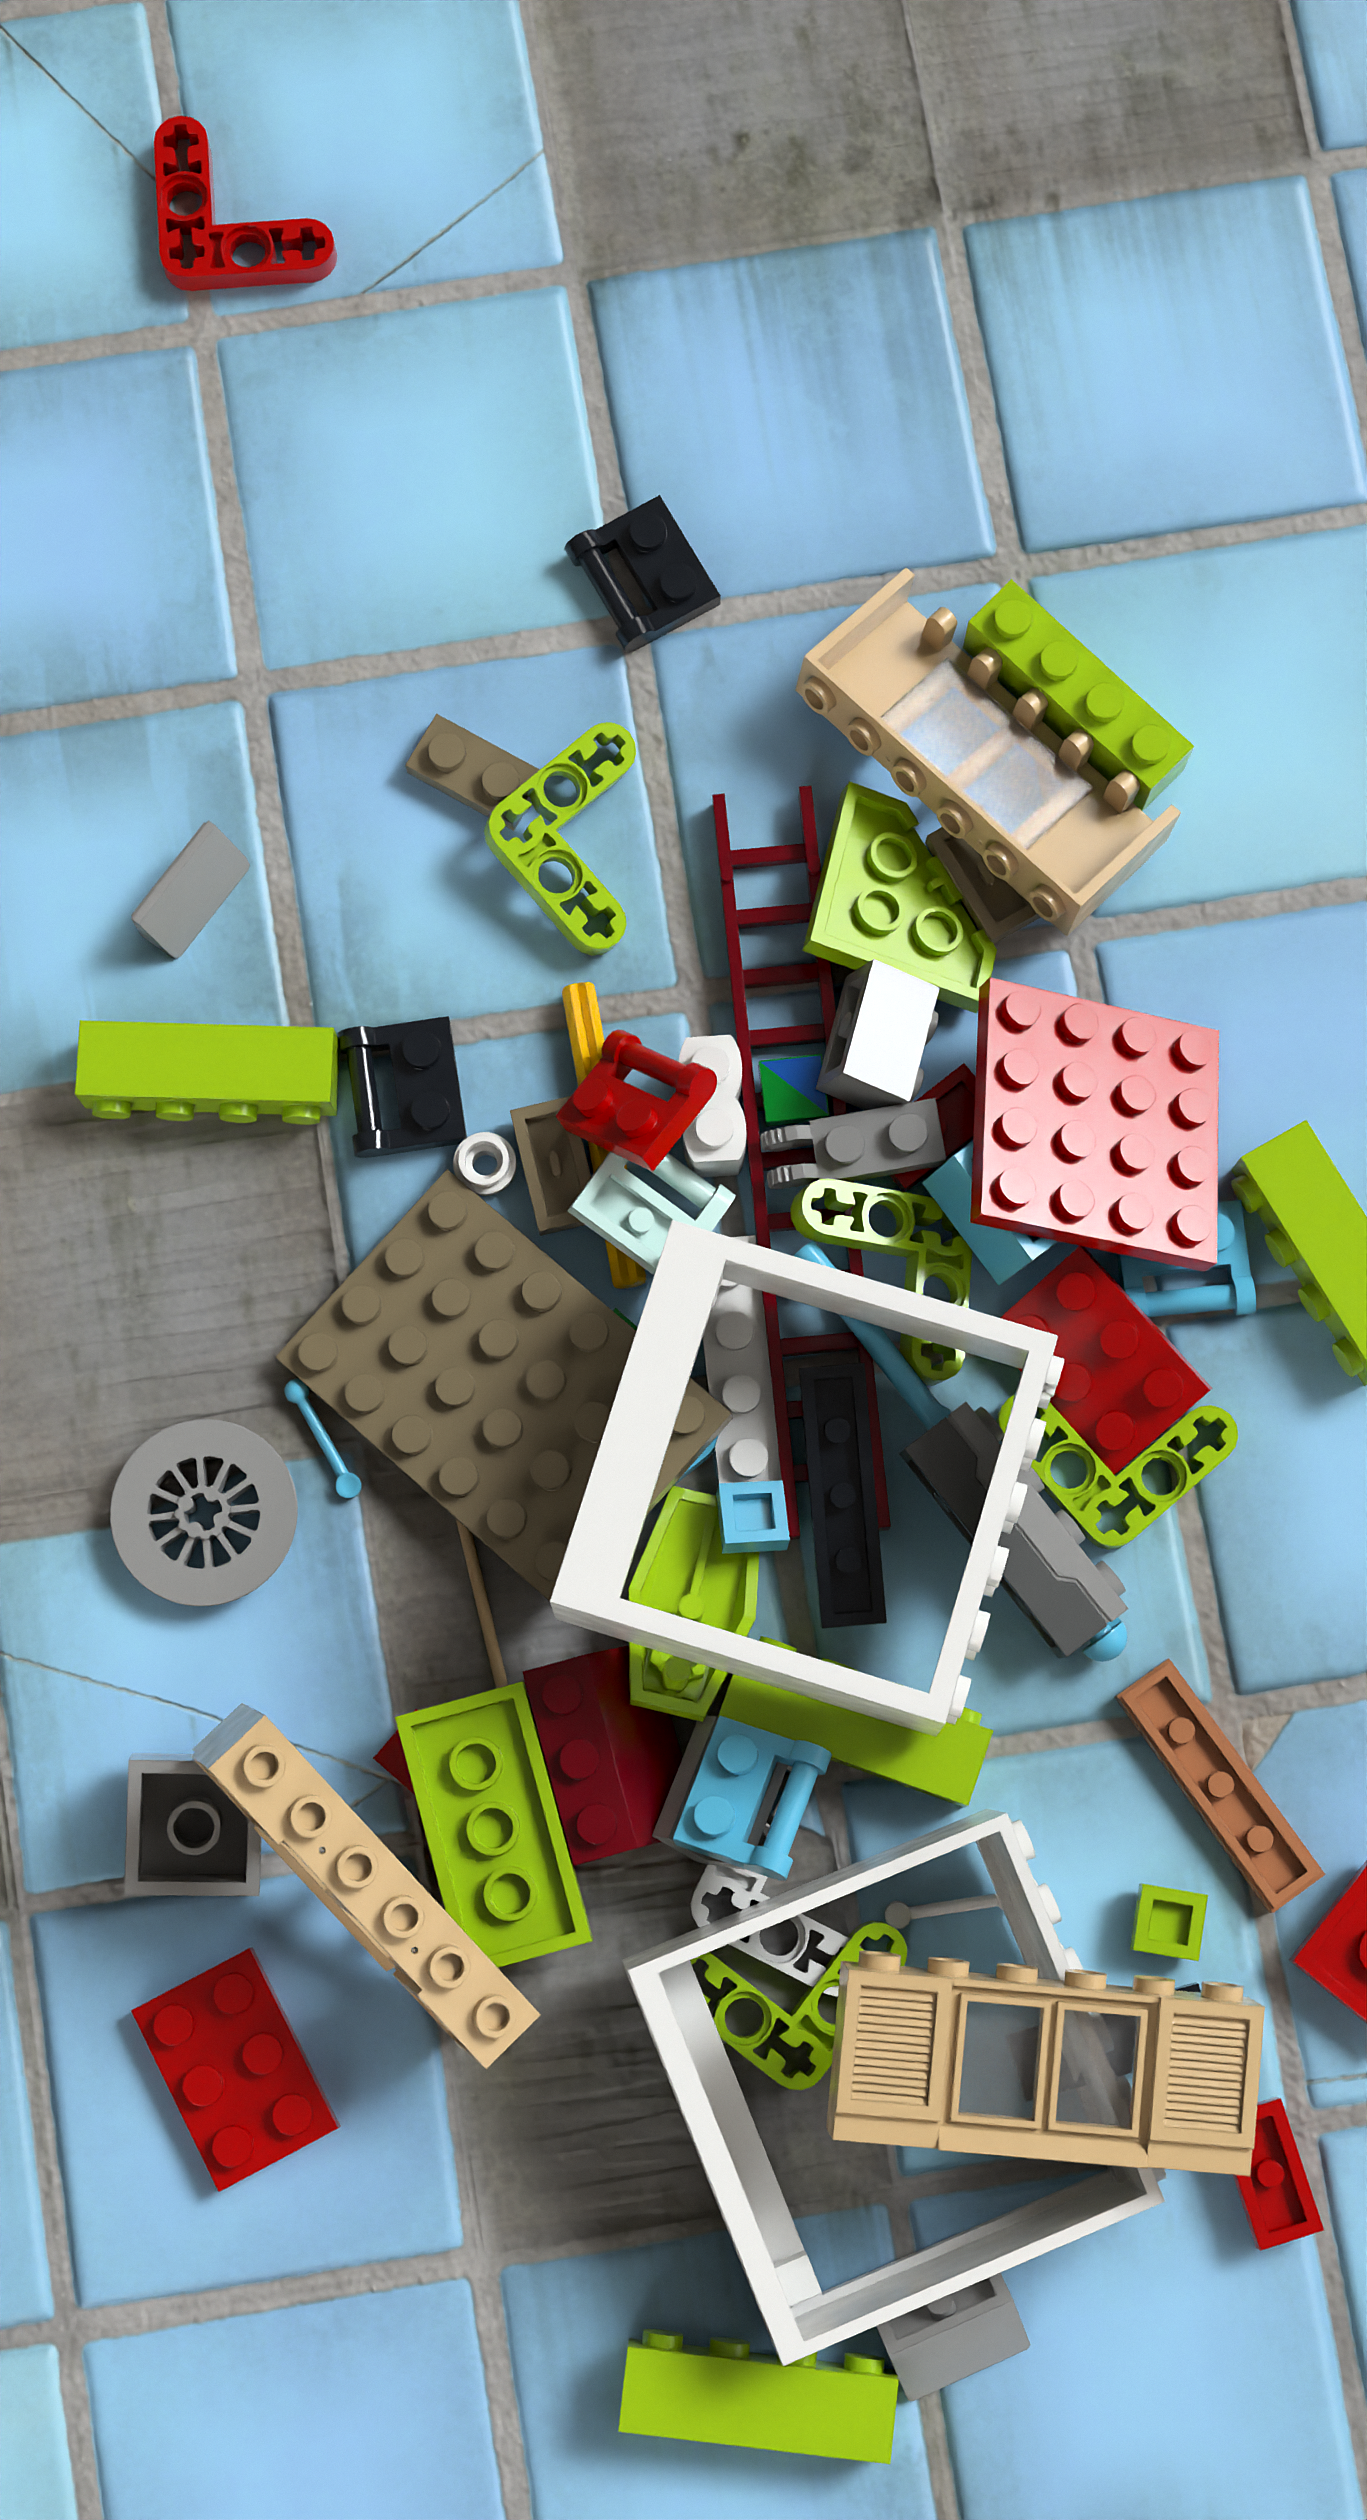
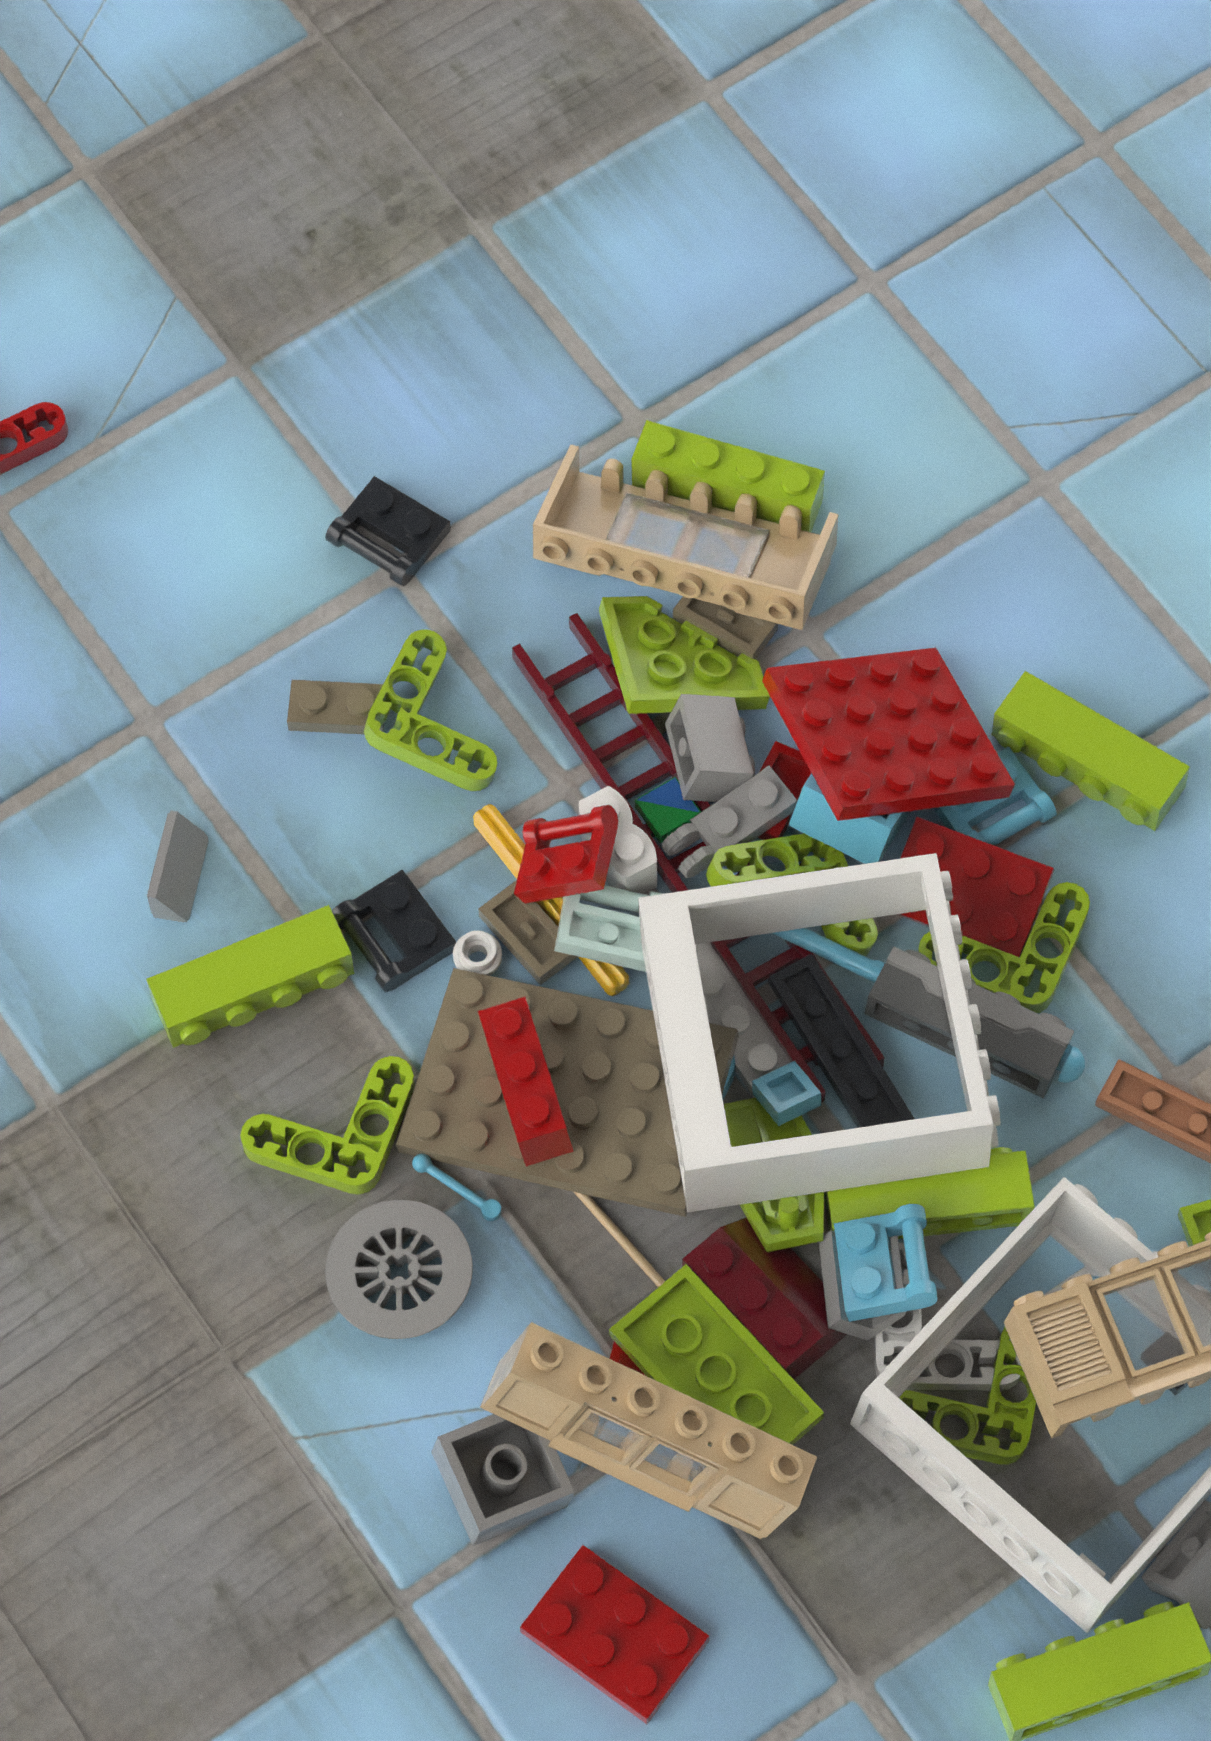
camera: 25 degrees left, 15 degrees down
(232, 1328) = (352, 1147): none -> lime beam
(446, 1365) = (525, 1081): none -> red brick

